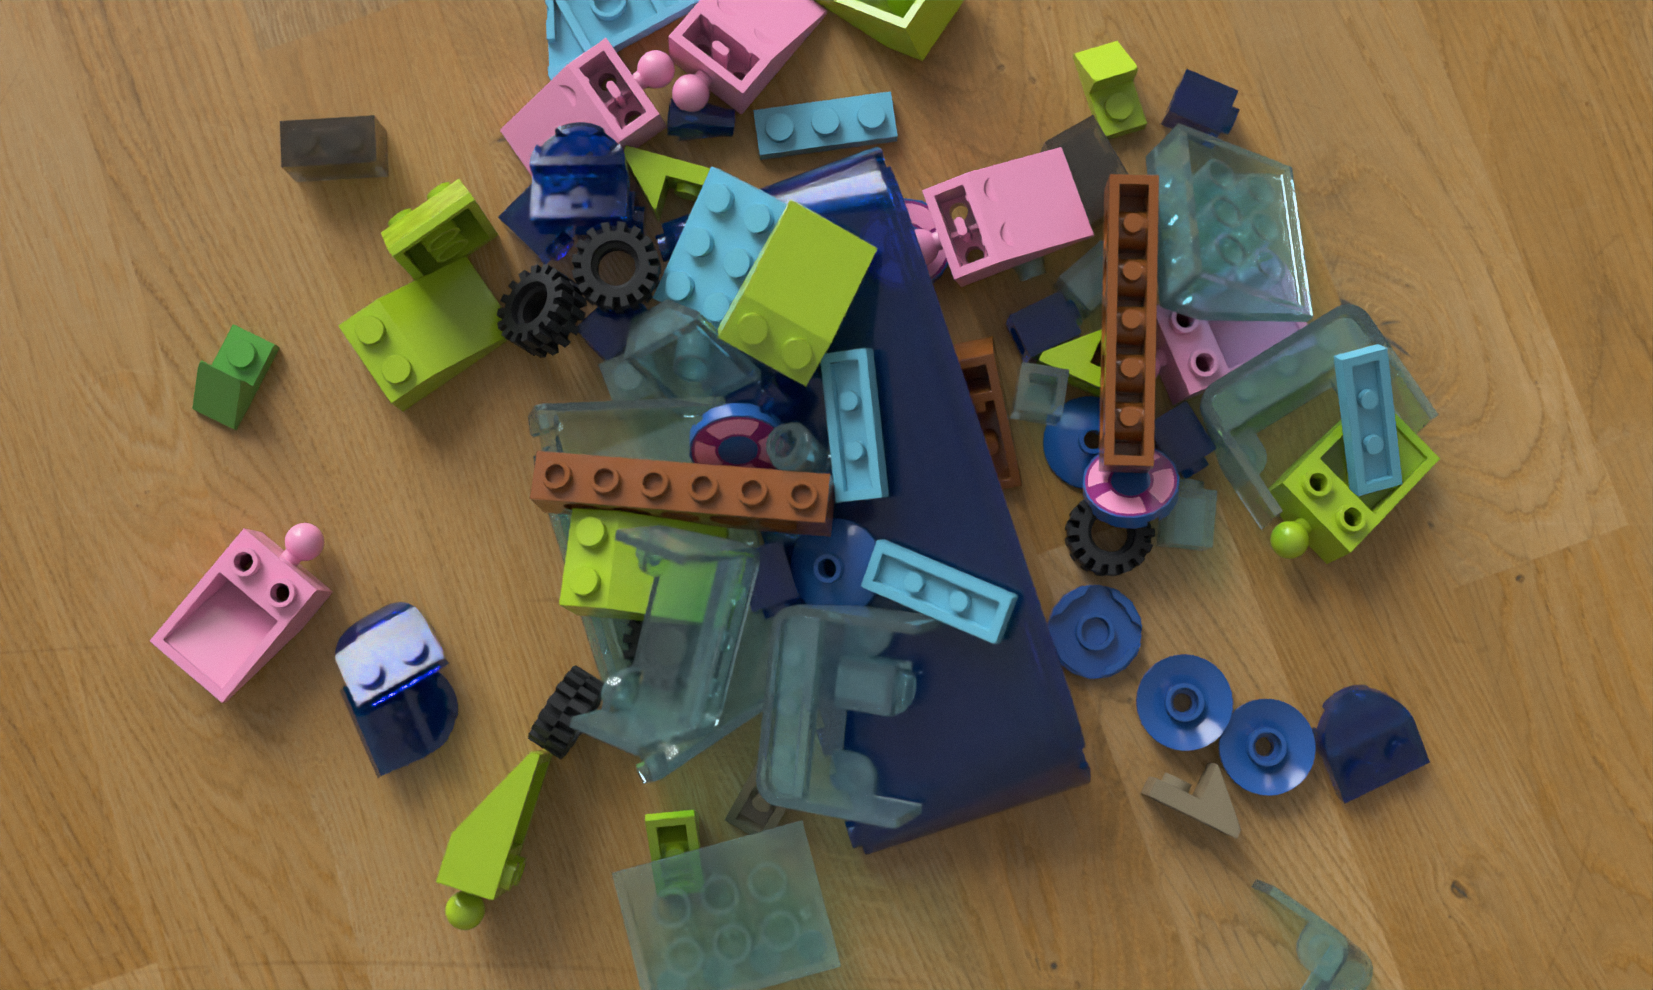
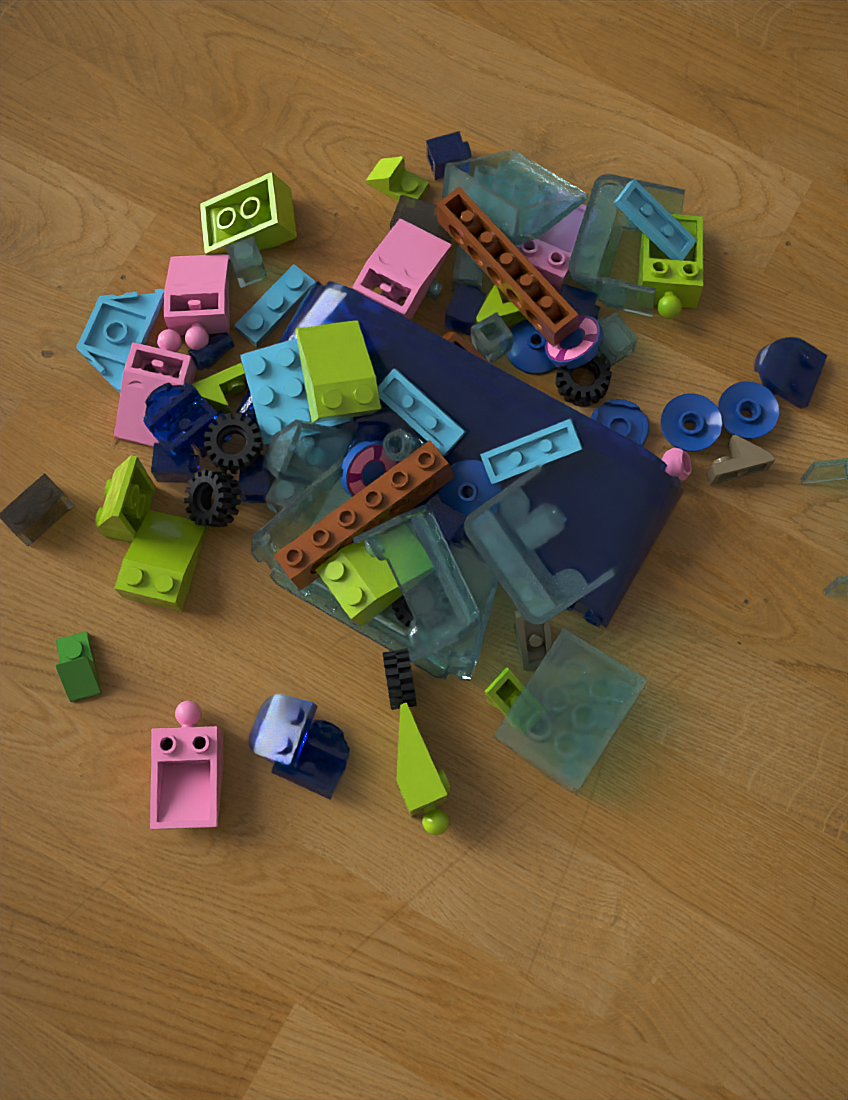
camera: 35 degrees left, 10 degrees down
(834, 42) = (246, 262): none -> clear light blue brick
(1118, 737) = (678, 463): none -> bright pink piece

